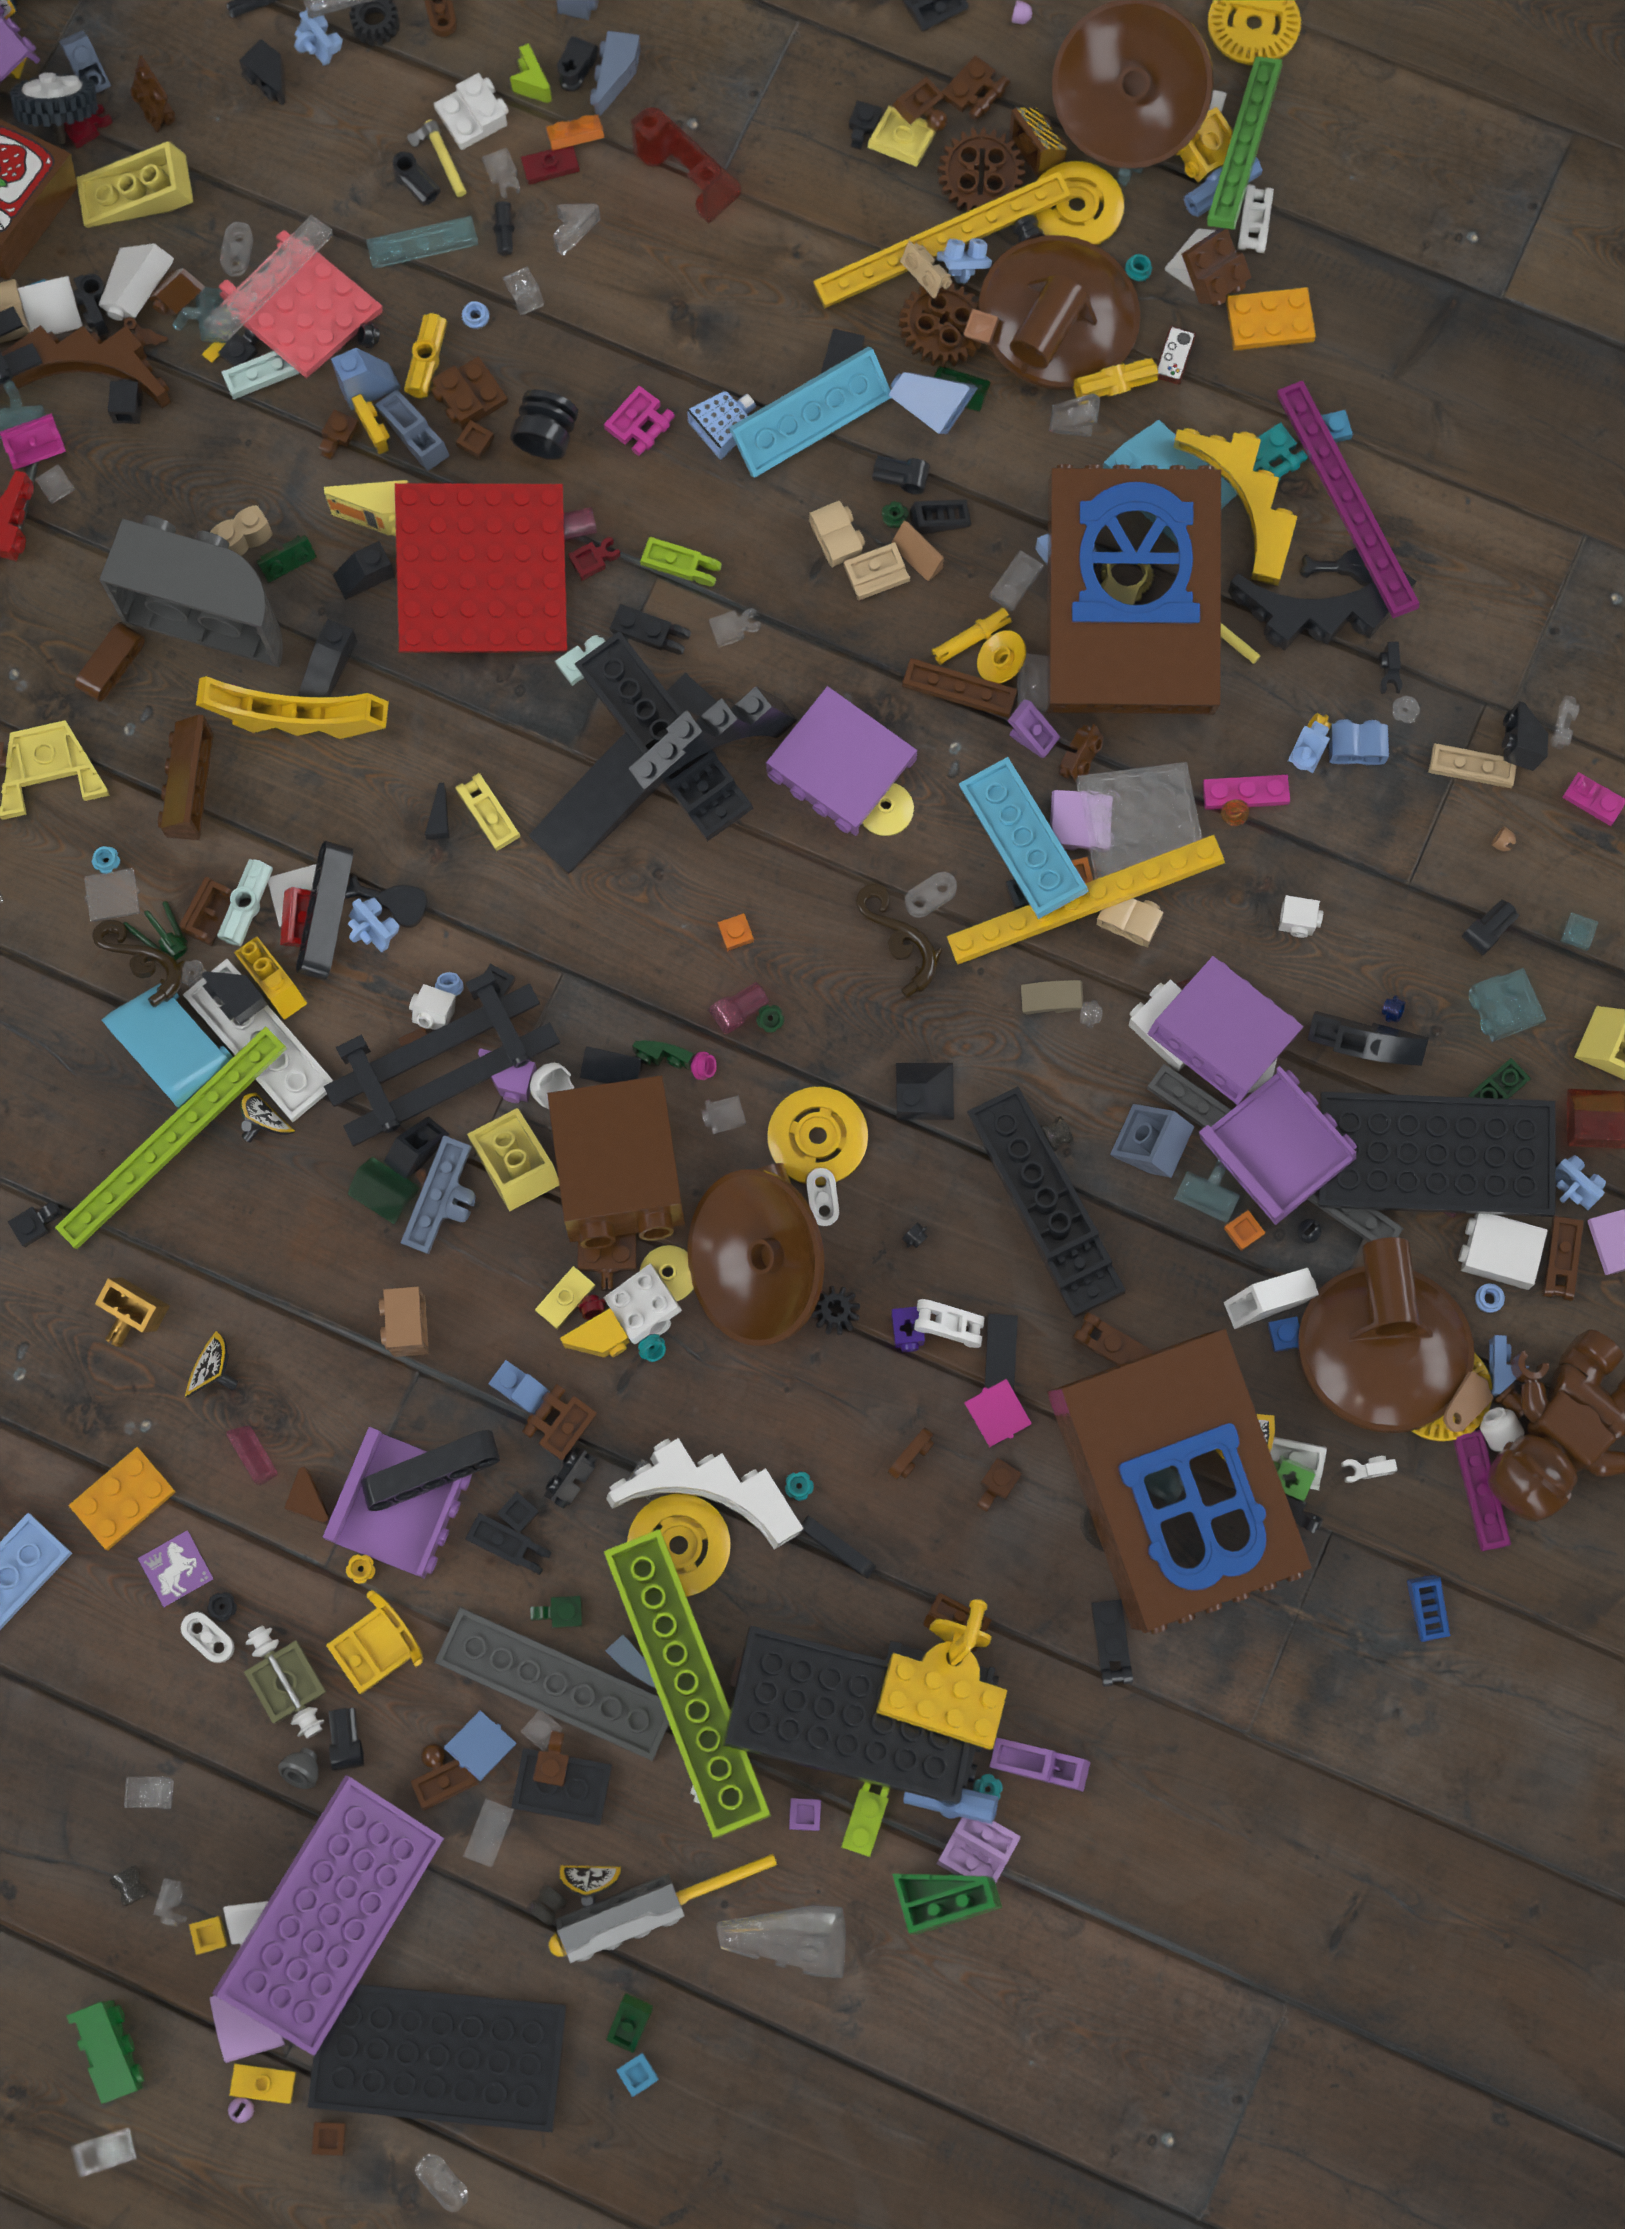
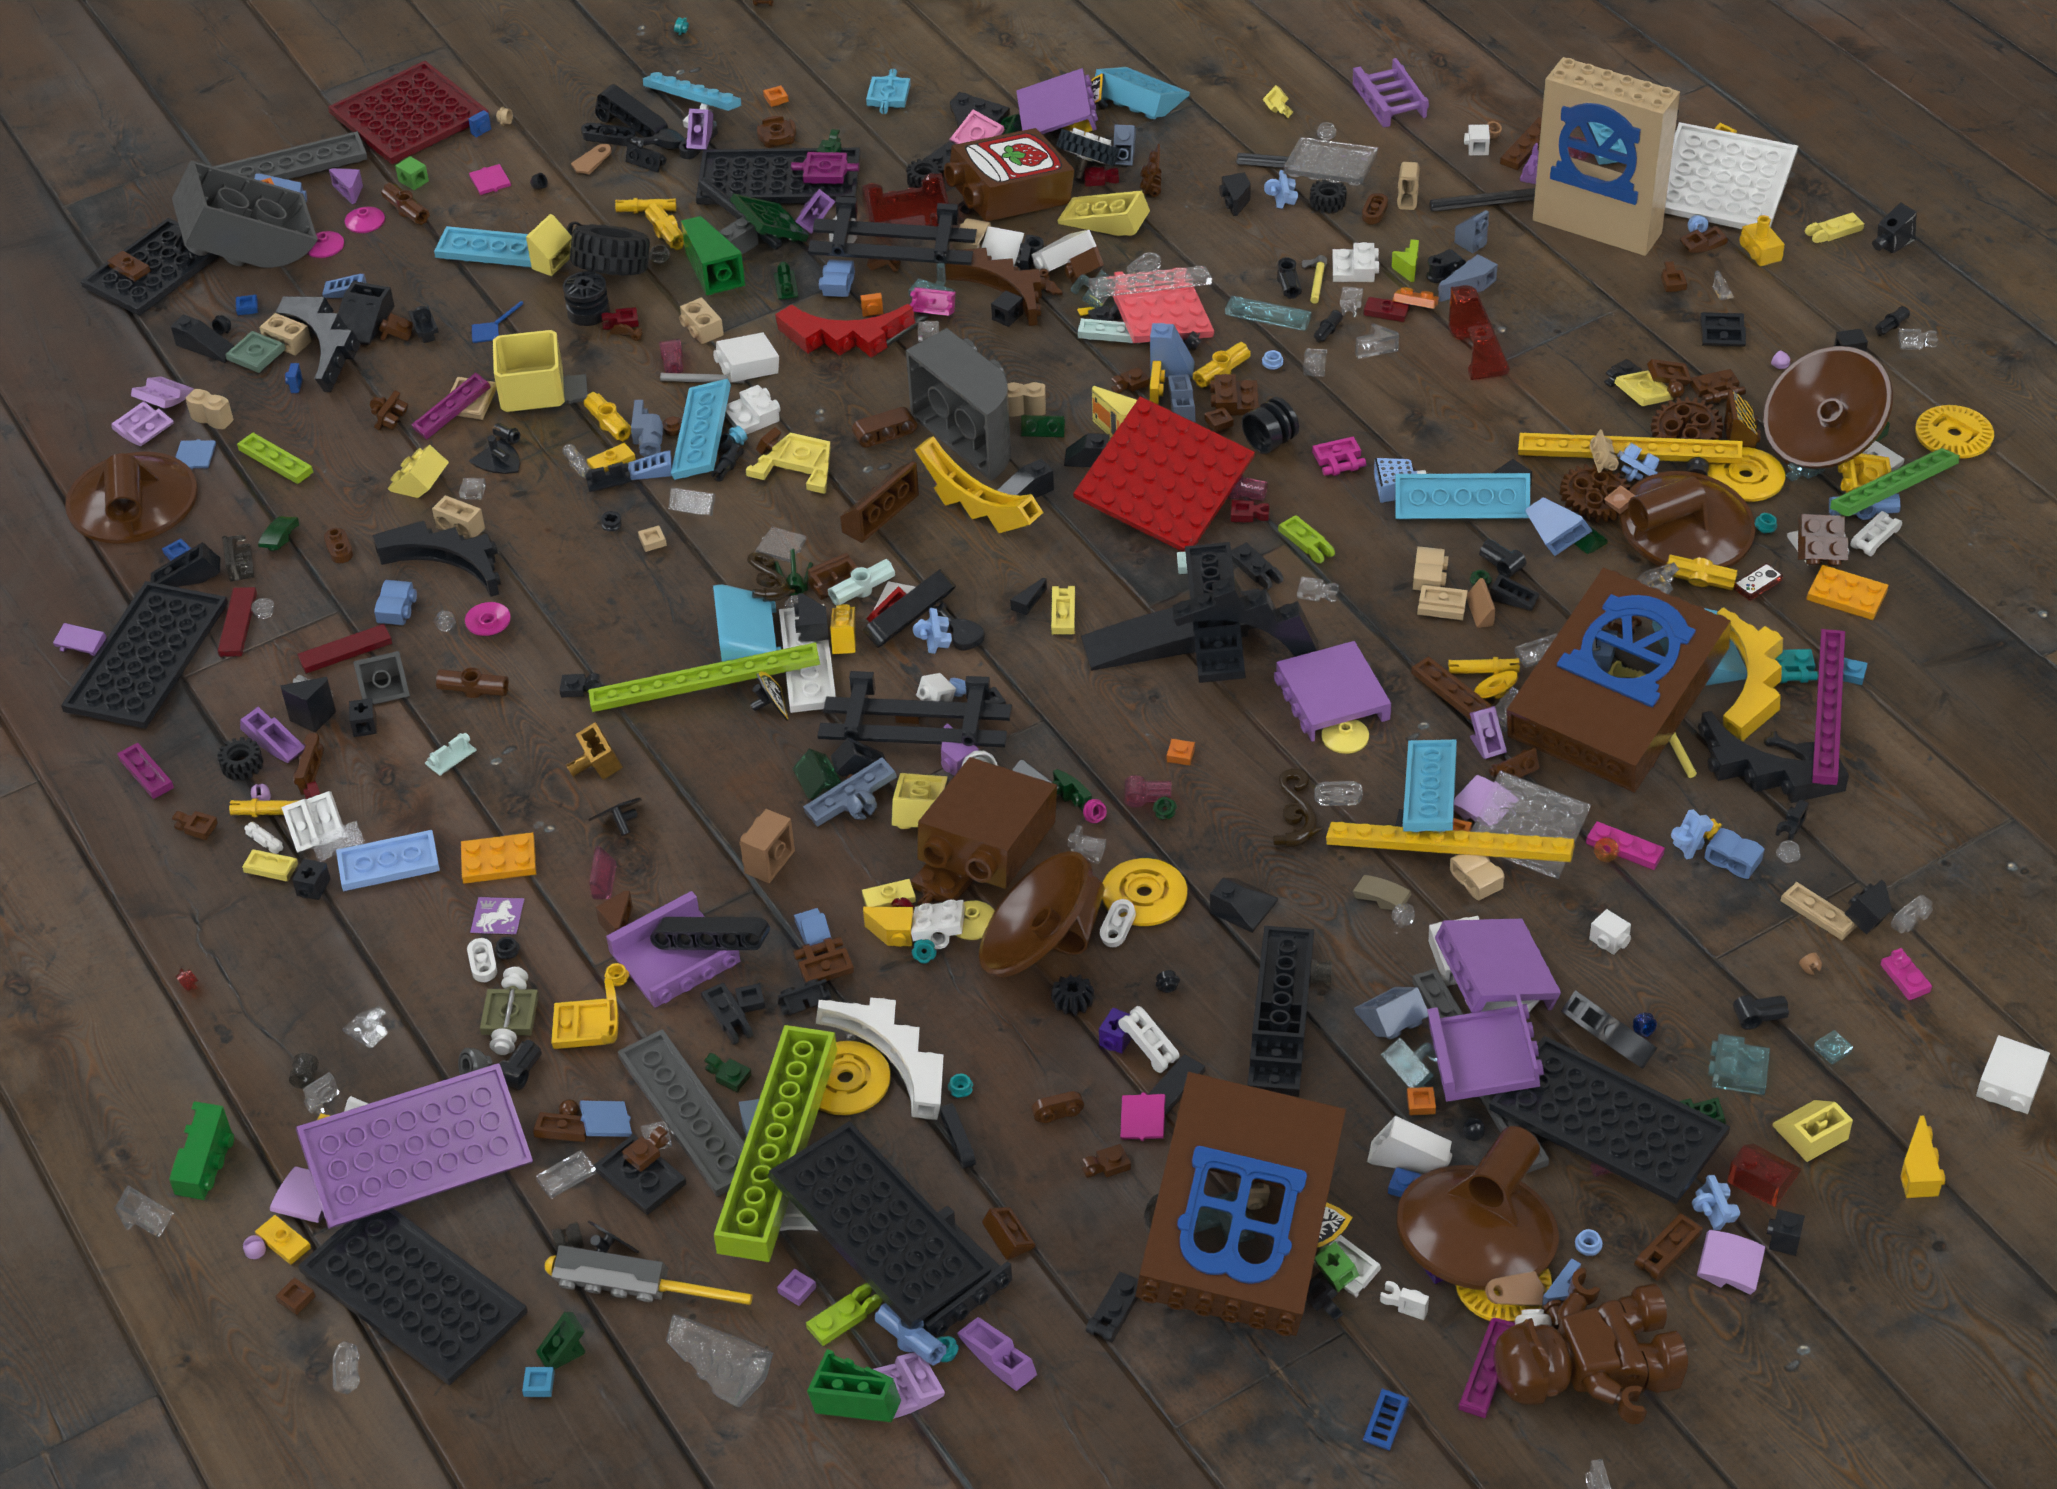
camera: 35 degrees right, 30 degrees down
(102, 853) = (792, 522): medium azure plate -> none
(946, 1695) = (965, 1248): yellow plate -> none
(1502, 1250) = (1621, 1215): white brick -> none

